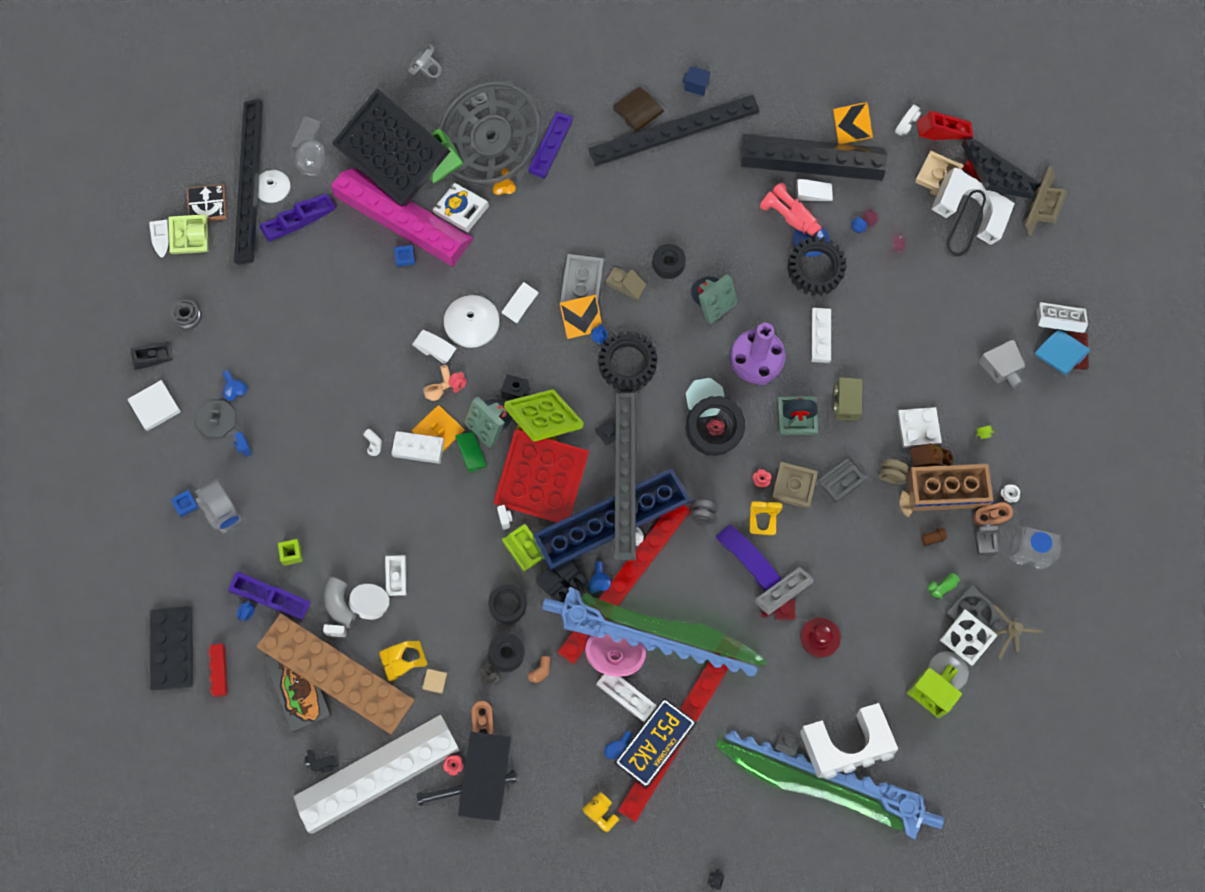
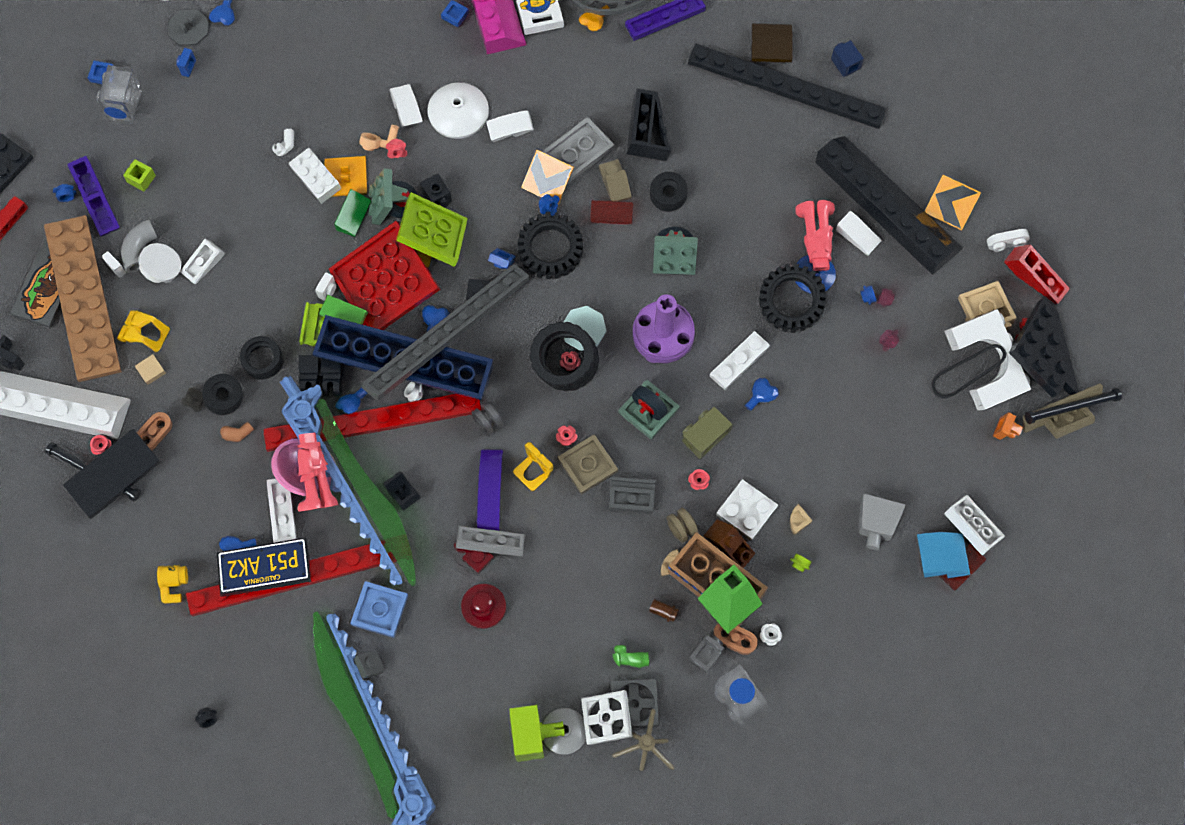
camera: 45 degrees right, 0 degrees up
(532, 524) = (342, 310): none -> bright green tile
(598, 476) = (433, 316): none -> blue rock
(604, 397) = (501, 258): none -> blue plate
(614, 229) = (647, 131): none -> black wedge
(627, 647) = (311, 465): none -> coral piece
(644, 305) = (611, 212): none -> clear red tile
(694, 609) = (401, 490): none -> black bracket
(757, 701) = (379, 609): none -> medium blue plate
(829, 760) = (436, 733): white arch -> none
(855, 344) = (762, 392): none -> blue rock
(872, 429) = (704, 476): none -> coral plate
(955, 406) = (799, 520): none -> tan tile
(976, 490) = (730, 599): none -> bright green slope
(1020, 239) = (1007, 427): none -> orange tile
(1060, 168) = (1114, 395): none -> black bar

